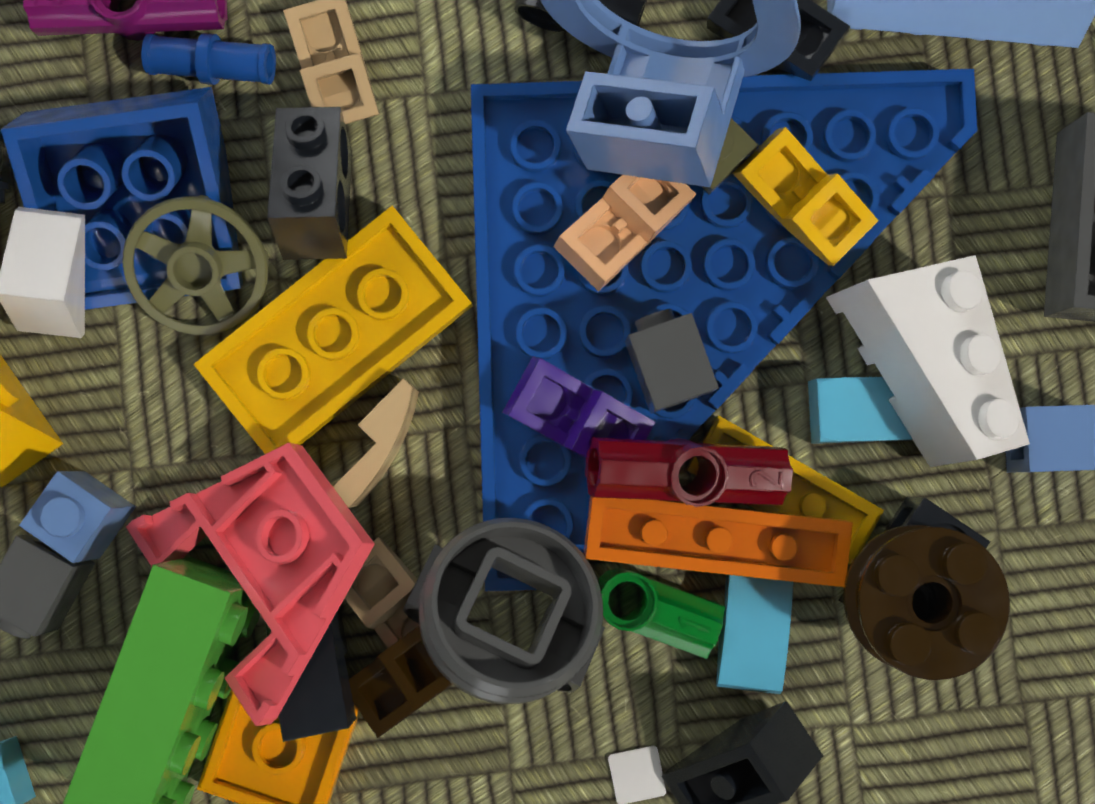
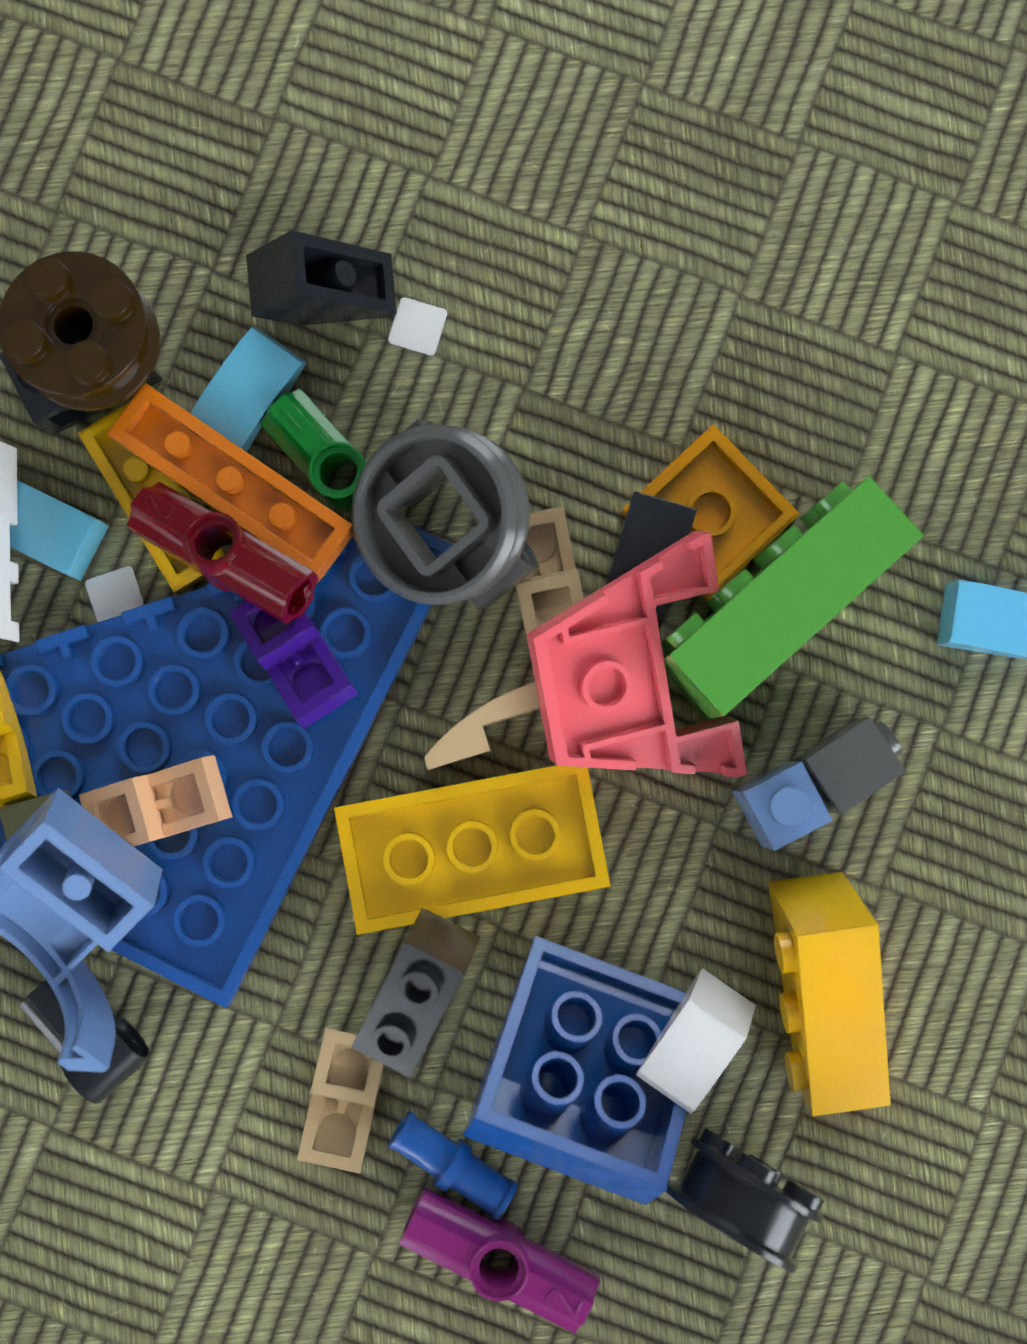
camera: 155 degrees left, 0 degrees up
(195, 265) = (561, 976): olive wheel -> none
(397, 683) = (574, 509): dark brown slope -> none
(670, 360) = (184, 656): dark grey brick -> none
(771, 385) = (114, 593): none -> white sticker

